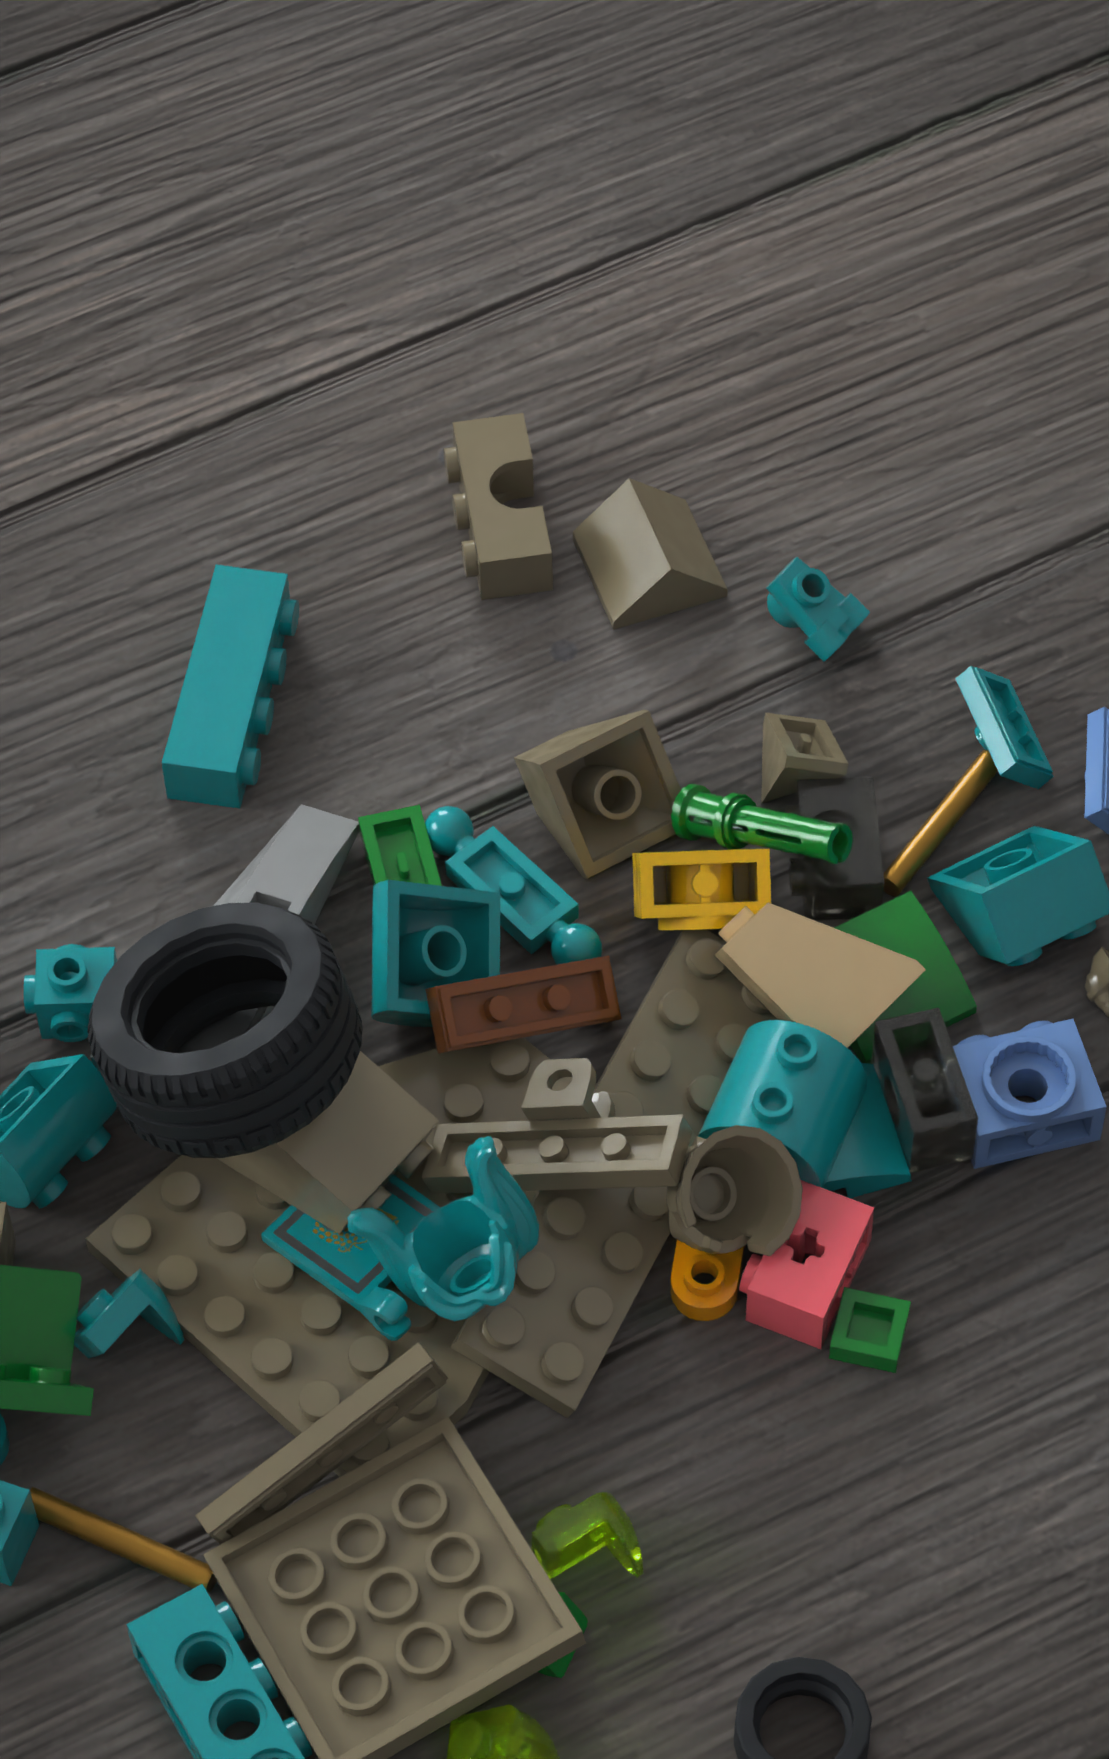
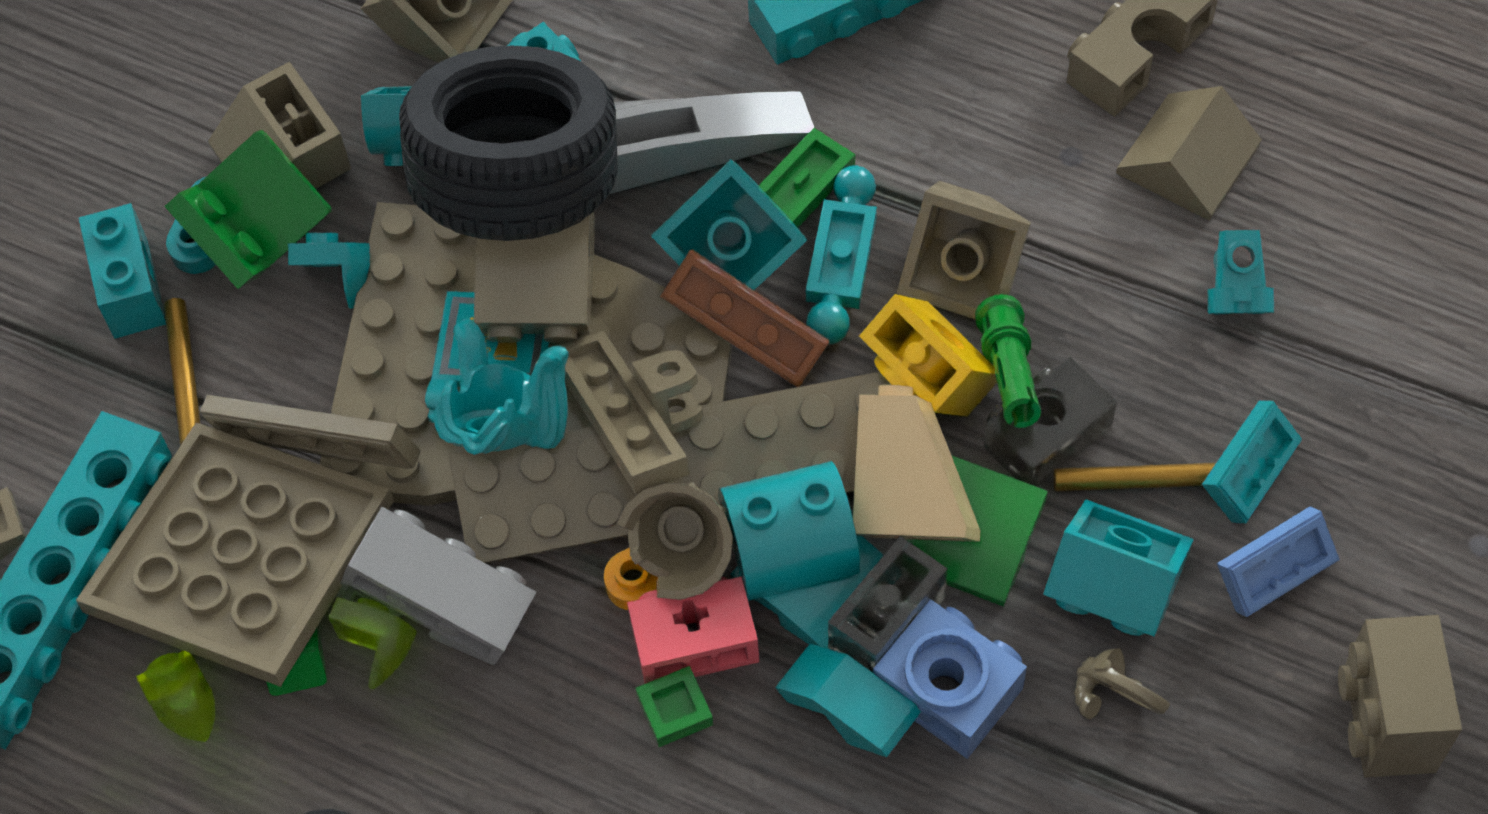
camera: 55 degrees right, 5 degrees up
(591, 1440) = (437, 585): none -> light grey wedge
(796, 751) = (1108, 344): dark tan slope -> none
(991, 1176) = (851, 697): none -> teal slope

